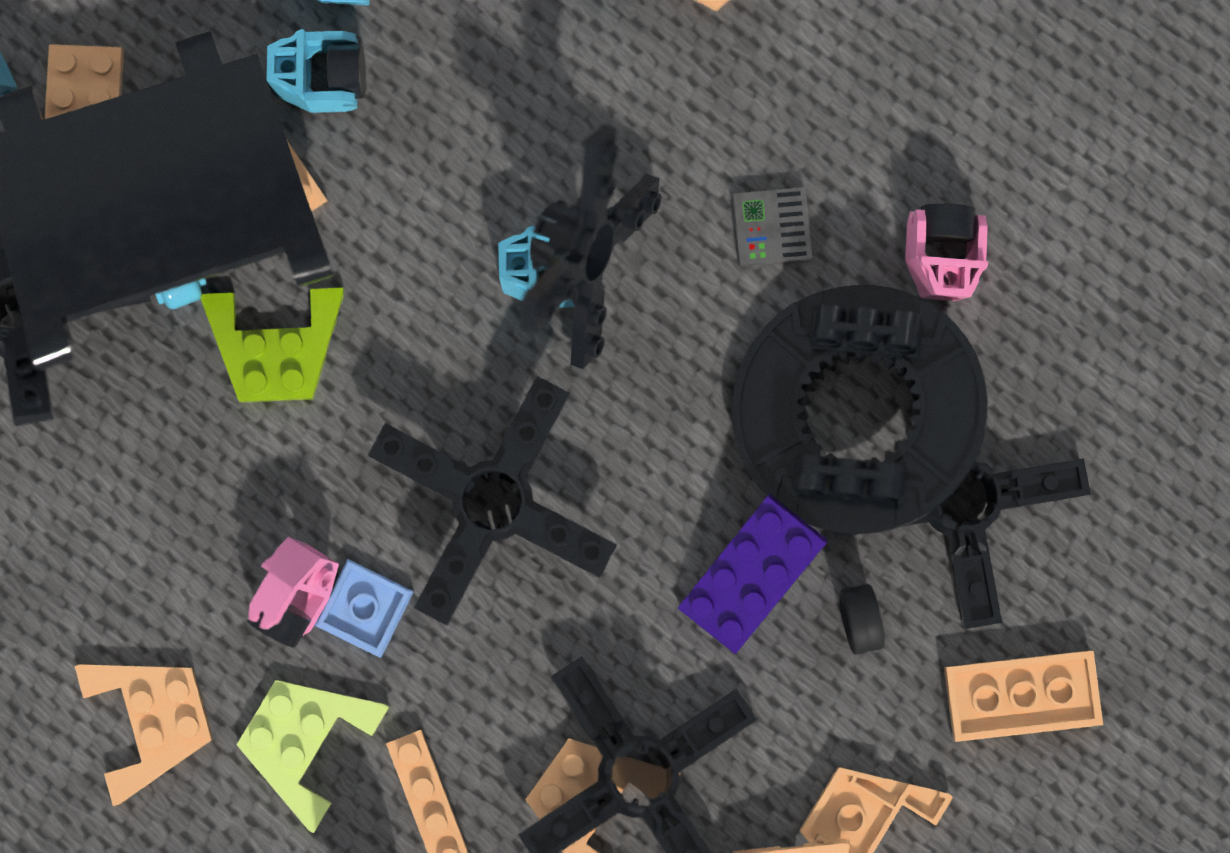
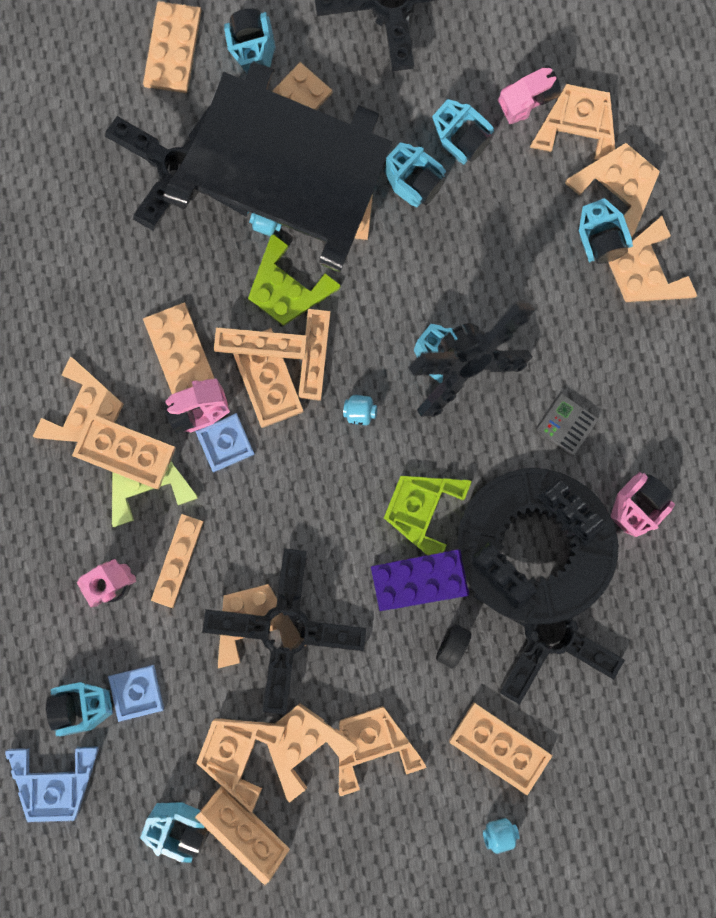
camera: 40 degrees right, 0 degrees up
(204, 539) = (178, 347): none -> light nougat plate
(248, 726) = (124, 451): none -> light nougat plate
(304, 446) = (260, 343): none -> light nougat plate
(346, 483) = (269, 387): none -> light nougat plate
(376, 388) = (316, 347): none -> light nougat plate
(455, 482) = (316, 419): black piece -> none
(493, 422) = (359, 410): none -> medium azure head
(668, 485) = (415, 504): none -> lime wing
(1112, 801) = (500, 835): none -> medium azure head

